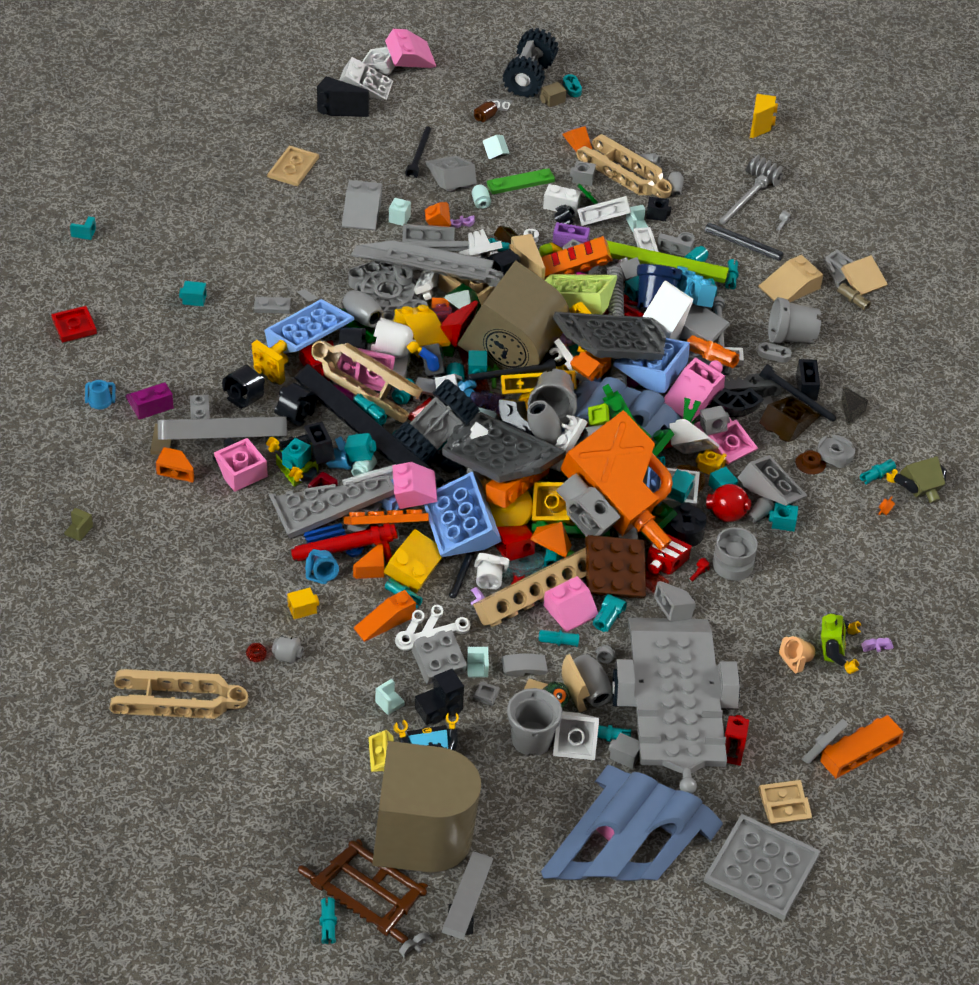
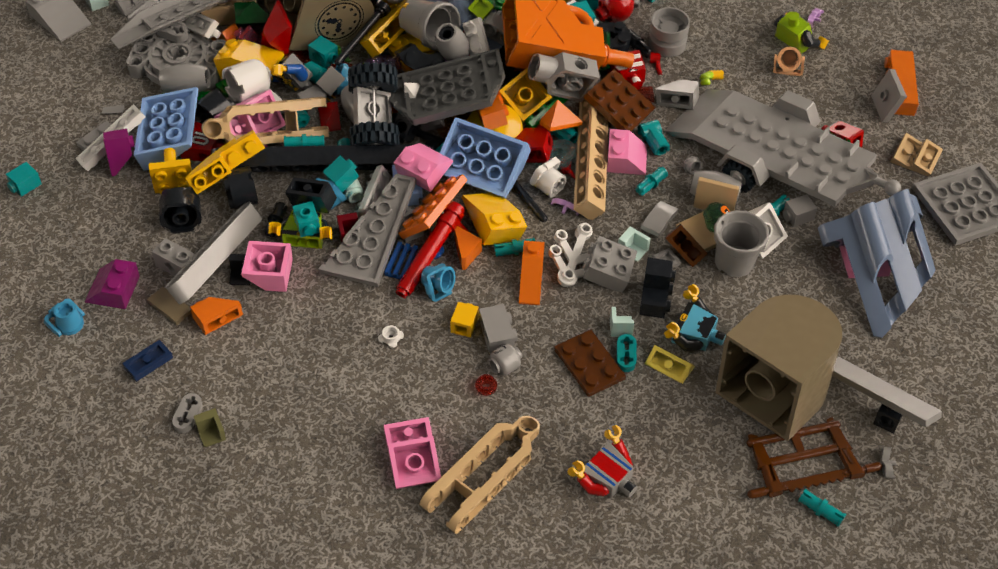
camera: 50 degrees left, 5 degrees up
(82, 504) = (183, 410): none -> light grey beam
(104, 458) = (147, 360): none -> dark blue plate
(155, 644) = (412, 453): none -> bright pink slope
(240, 766) = (607, 470): none -> torso
(253, 569) = (391, 331): none -> white plate
(260, 317) = (118, 148): none -> magenta slope
(267, 309) = (96, 150): none -> white plate
(296, 375) = (223, 161): none -> yellow slope
(312, 626) = (497, 327): none -> light grey brick
(335, 702) = (589, 363): none -> reddish brown plate
(365, 718) = (631, 352): none -> teal beam
(506, 686) = (686, 245): none -> reddish brown slope
(708, 543) = (638, 43): none -> black axle
(724, 611) = (711, 75): none -> arm

